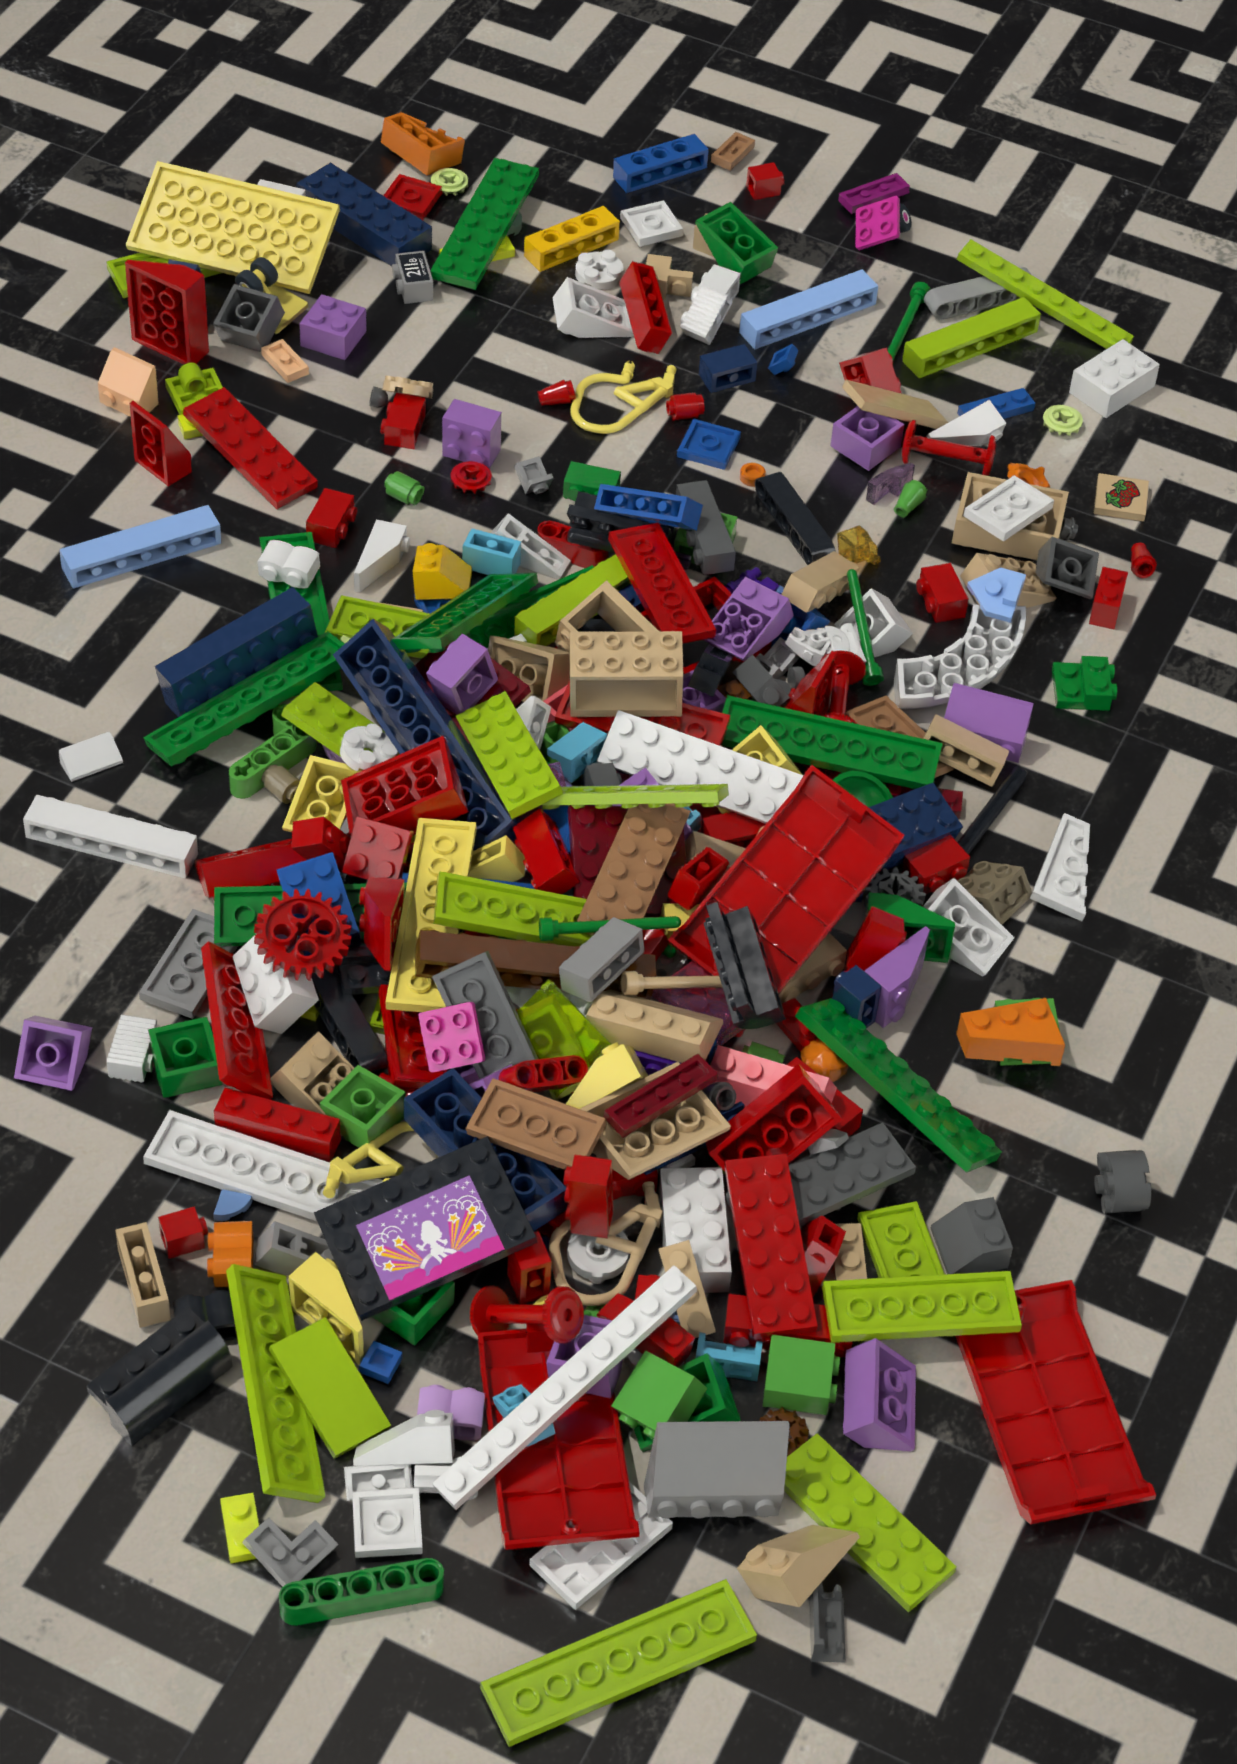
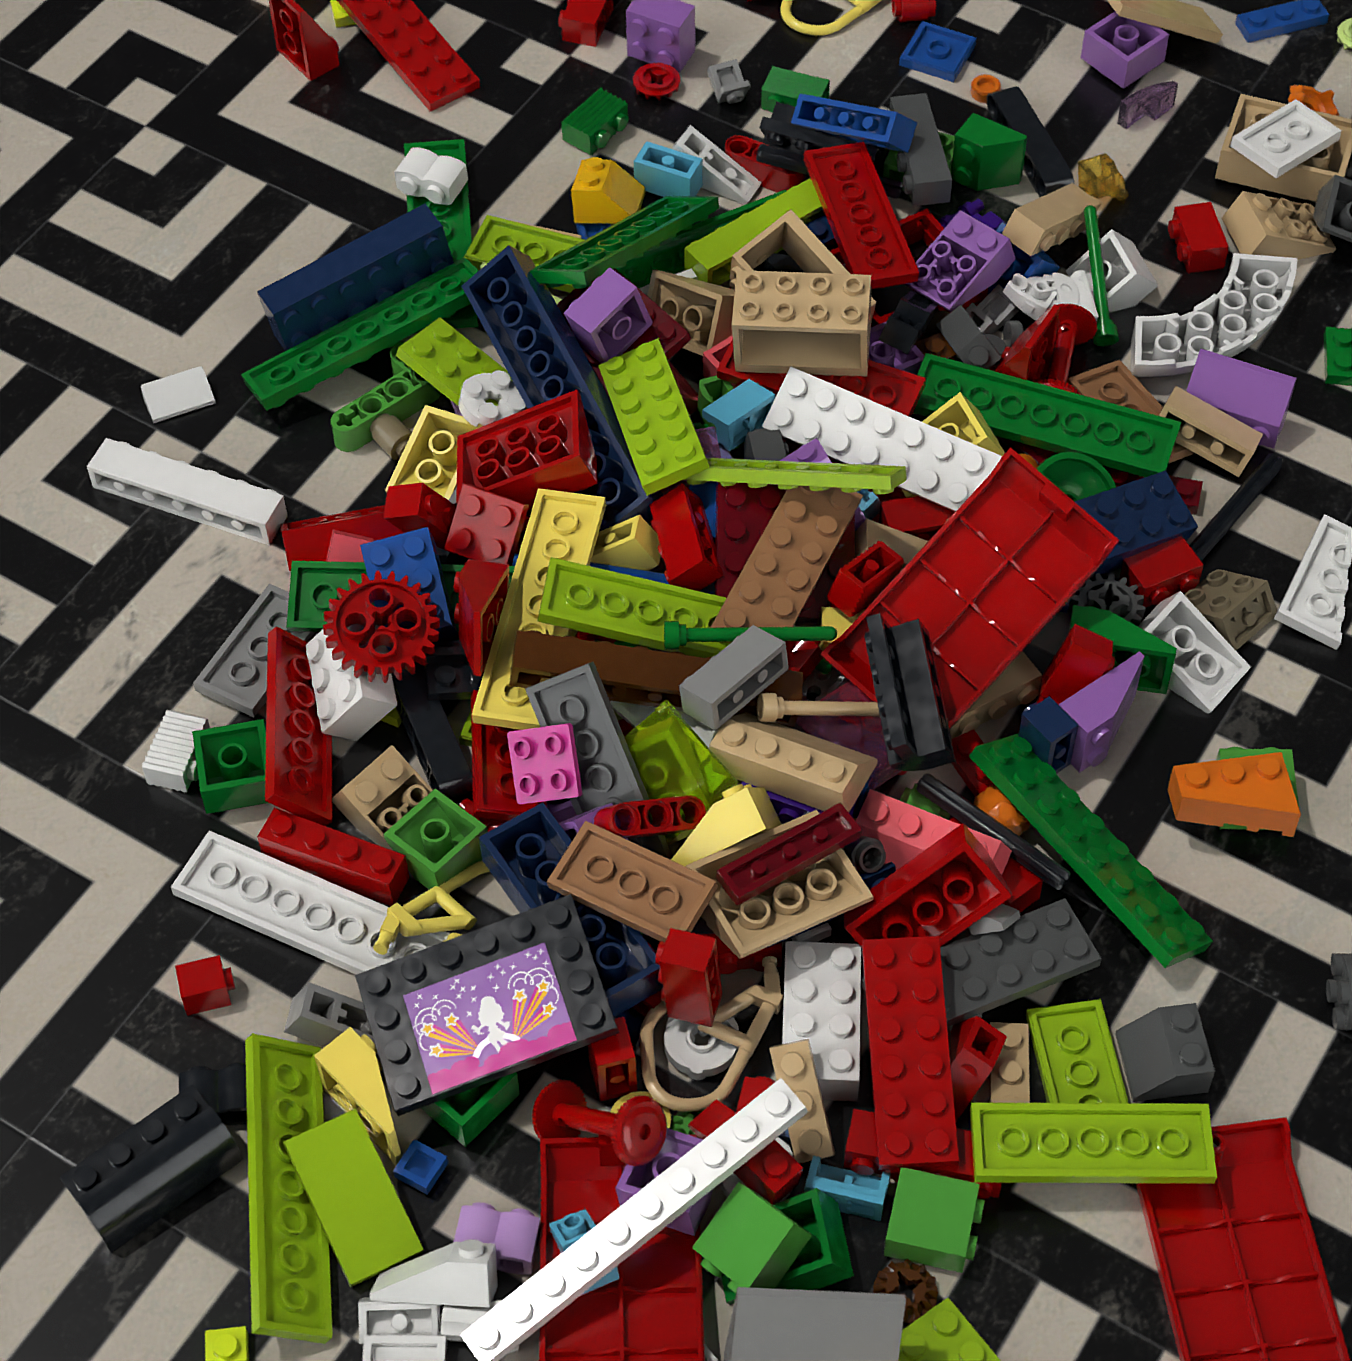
camera: 10 degrees right, 5 degrees up
(52, 1052) = (83, 750): medium lavender slope -> none
(140, 546) = (267, 149): light blue brick -> none
(143, 1275) = (148, 1037): tan brick -> none
(230, 1245) = (260, 1009): orange brick -> none
(231, 1204) = (268, 952): medium blue tile -> none
(259, 875) = (346, 547): none -> coral brick
(331, 517) = (489, 123): red brick -> none
(381, 553) = (541, 167): white slope -> none
(404, 488) = (573, 89): bright green brick -> none
(424, 512) = (595, 121): none -> green brick
(535, 717) = (691, 373): white slope -> none
(761, 530) = (987, 154): none -> green slope
(845, 1088) = (982, 822): none -> black axle
(879, 1397) = (1030, 1256): medium lavender slope -> none
(910, 497) = (1170, 121): bright green cone -> none
(948, 449) = (1219, 65): red hose -> none
(972, 427) = (1248, 43): white slope -> none
(998, 592) = (1264, 240): light blue plate -> none

